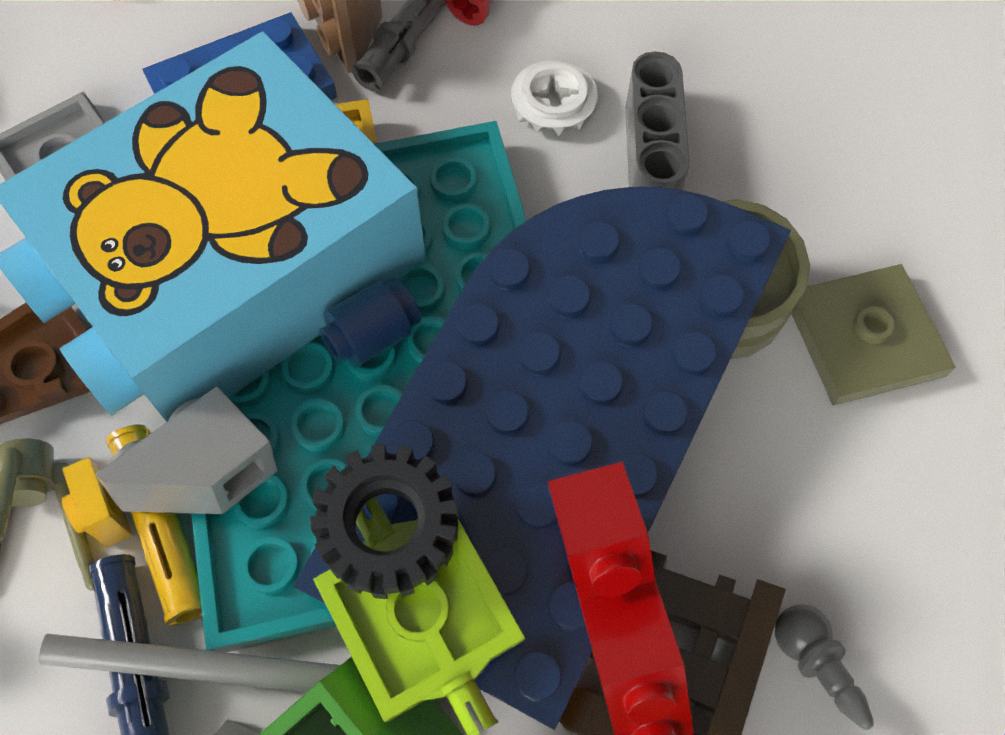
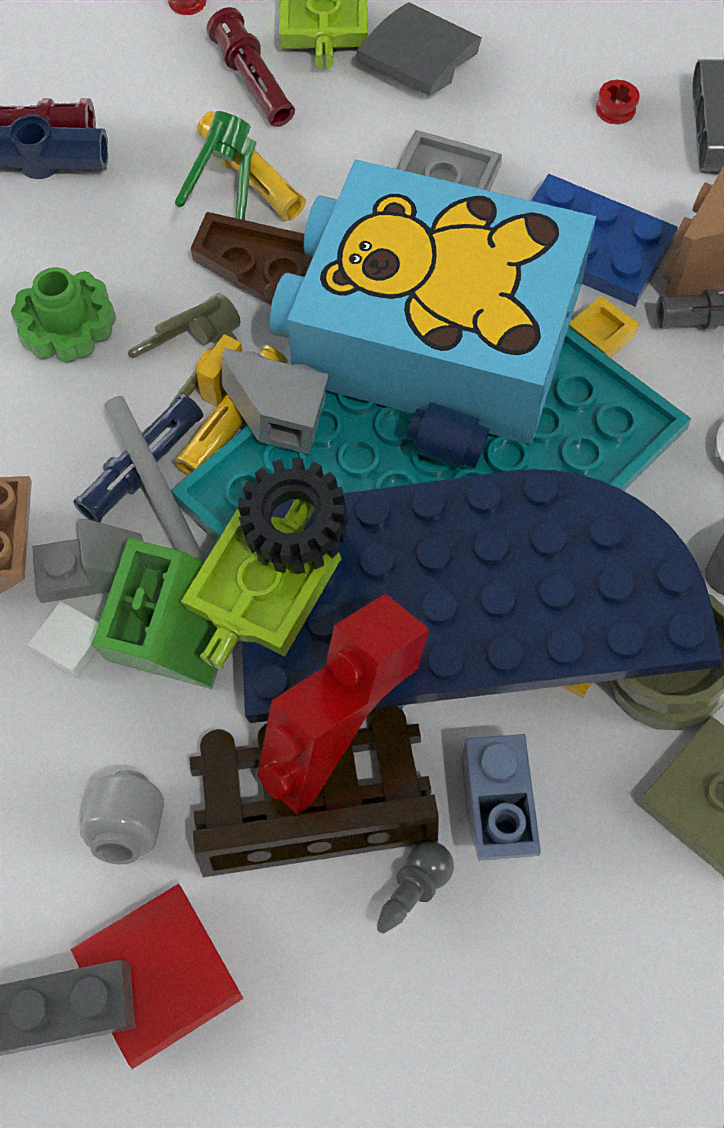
camera: 60 degrees right, 0 degrees up
(790, 521) = (500, 797): none -> sand blue slope

